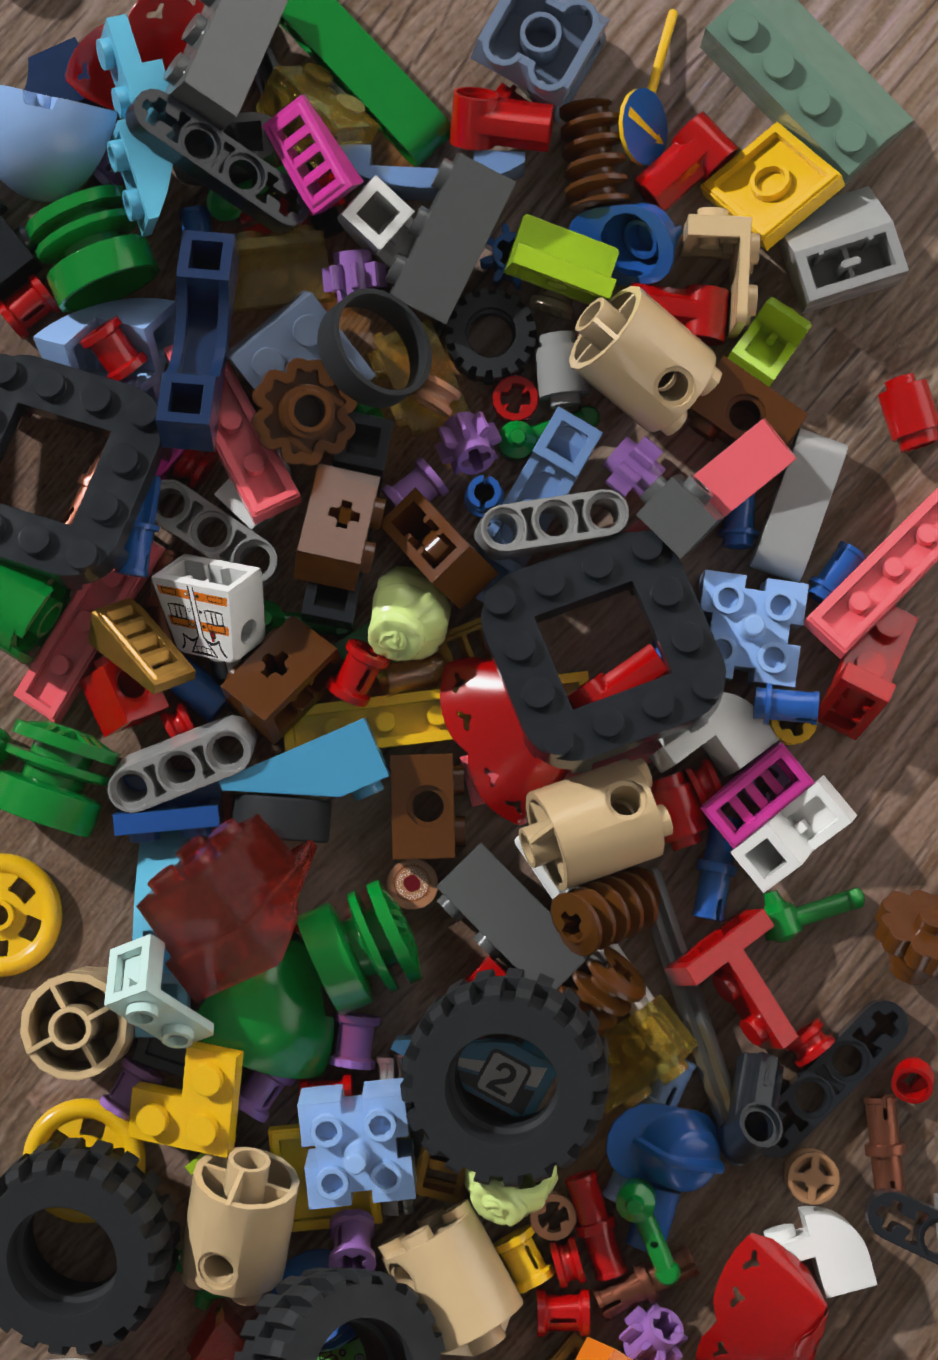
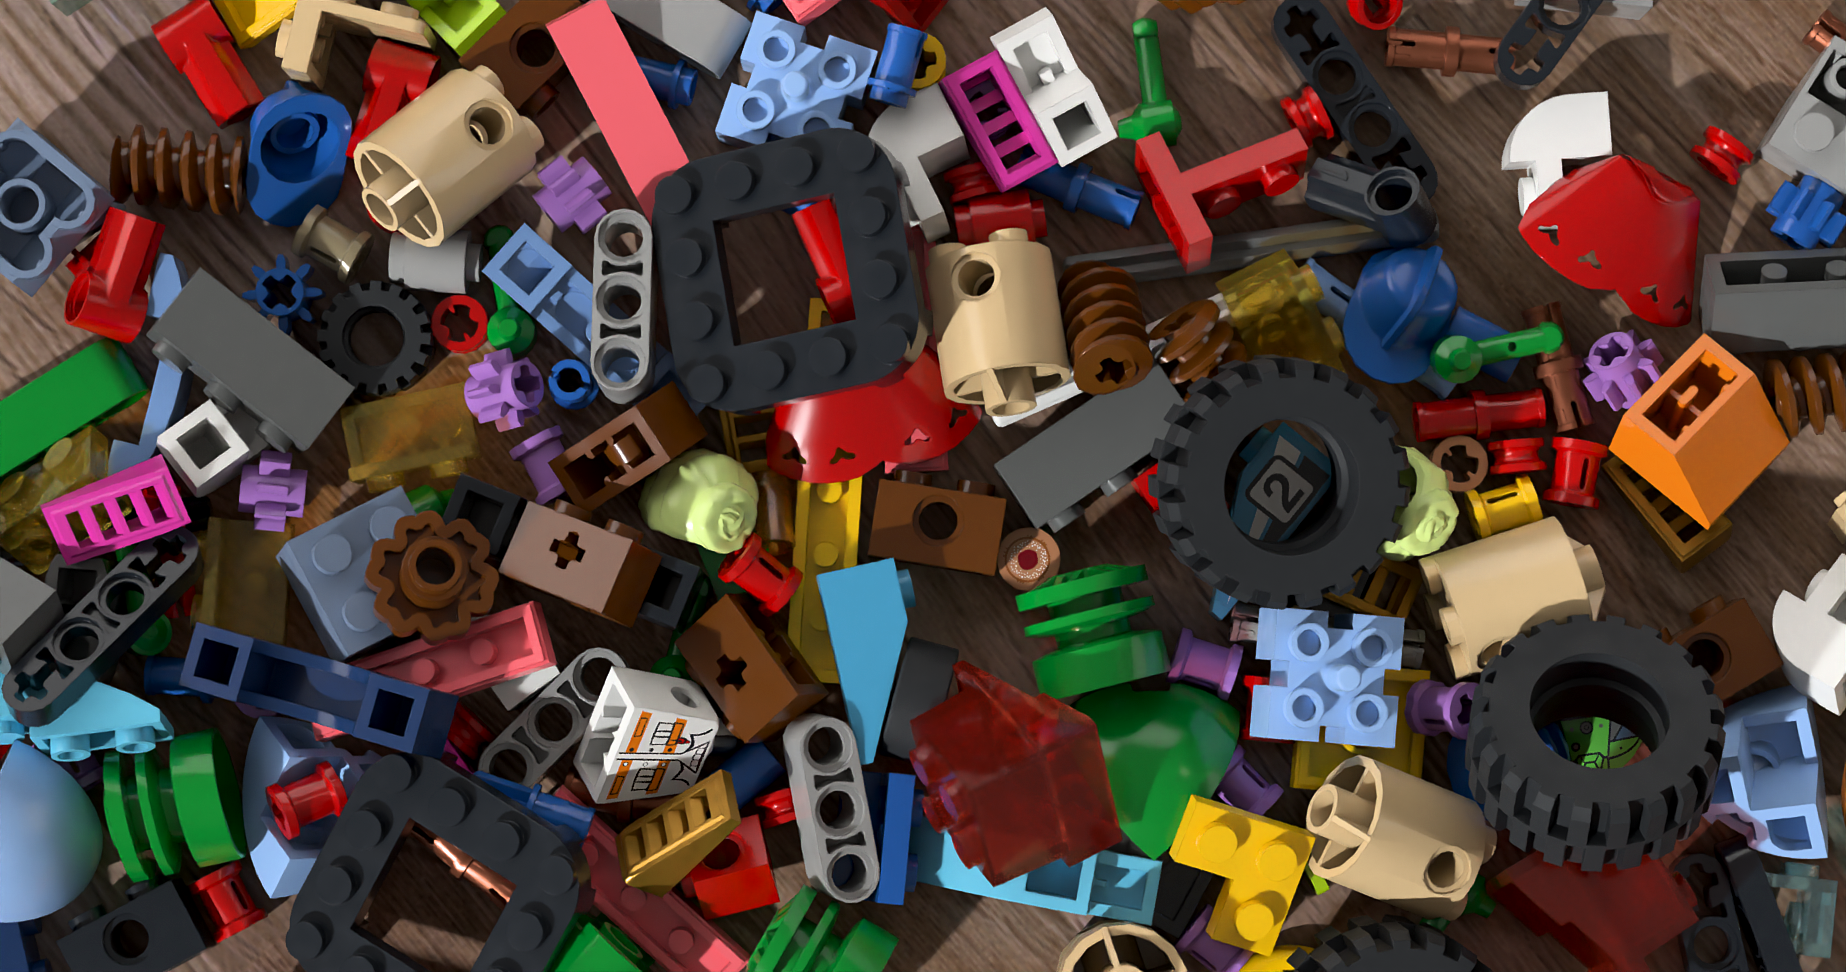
camera: 85 degrees left, 0 degrees up
(137, 996) = (1102, 903): light aqua bracket -> none
(406, 325) = (386, 521): black tyre -> none
(436, 395) = (437, 417): nougat bush -> none
(562, 261) = (304, 232): lime panel -> none
(642, 114) = (139, 101): blue piece -> none
(679, 512) = (640, 148): dark grey brick -> none
(820, 1186) = (1470, 134): medium nougat wheel -> none

